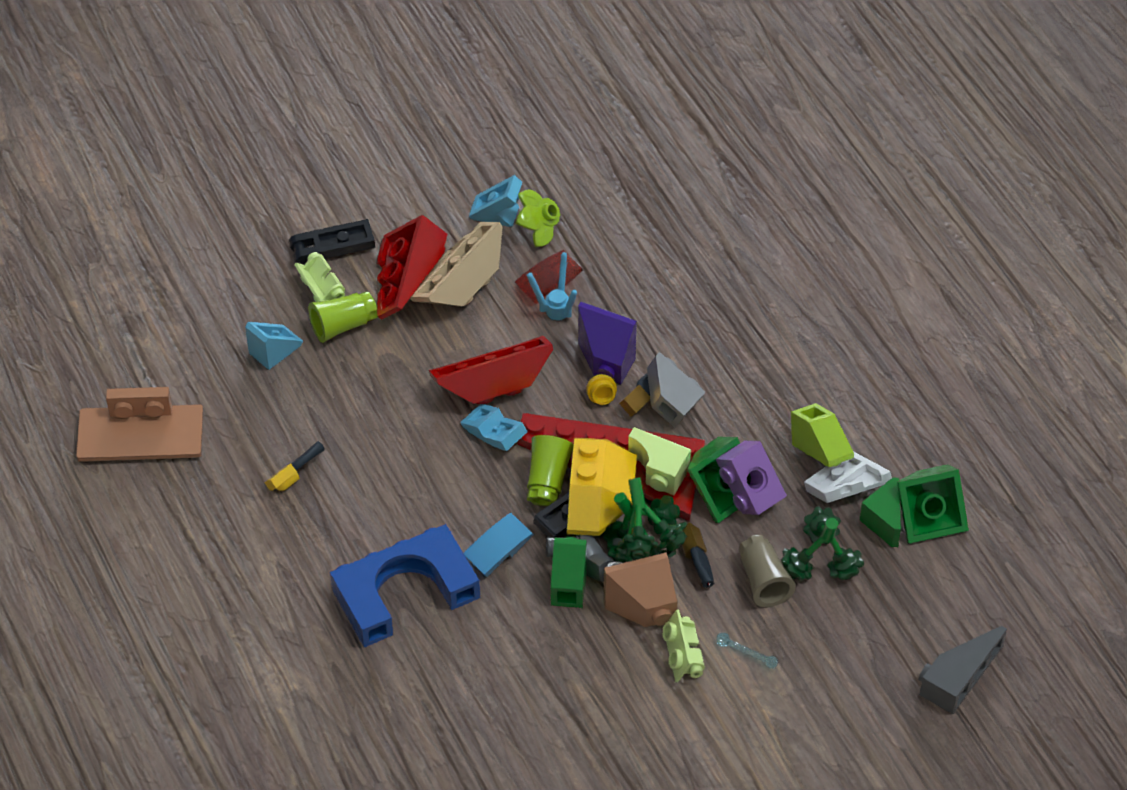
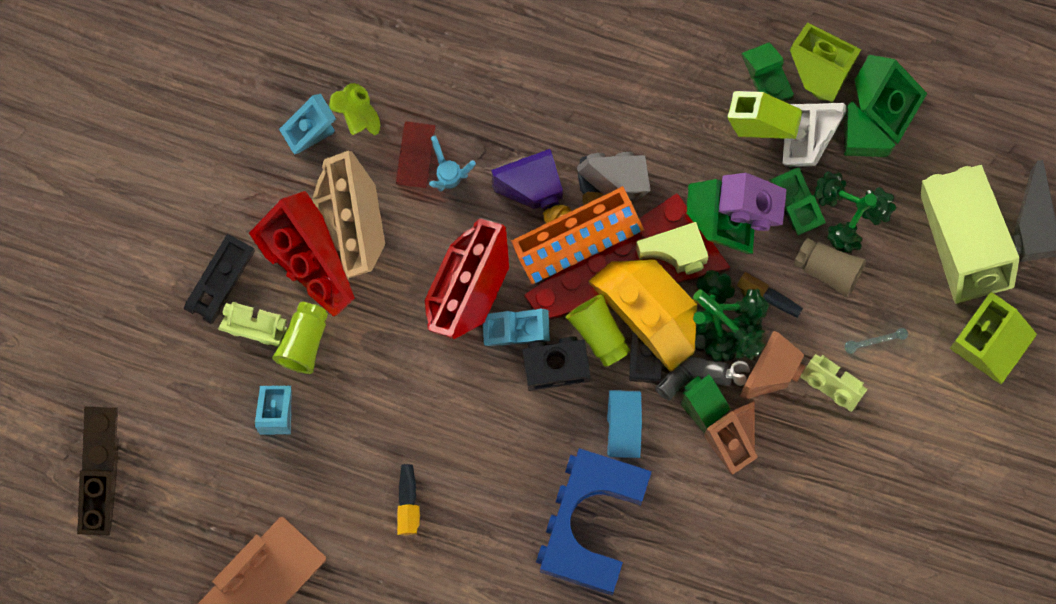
camera: 45 degrees left, 25 degrees up
(120, 285) = (98, 471): none -> dark brown slope
(493, 469) = (541, 376): none -> black brick
(569, 615) = (734, 438): none -> nougat slope
(599, 399) = (577, 235): none -> orange brick
(788, 516) = (800, 205): none -> green slope
(837, 714) = (994, 338): none -> lime slope
(860, 423) = (767, 72): none -> green slope
(893, 636) = (969, 233): none -> yellowish green slope
(906, 442) = (823, 61): none -> lime slope

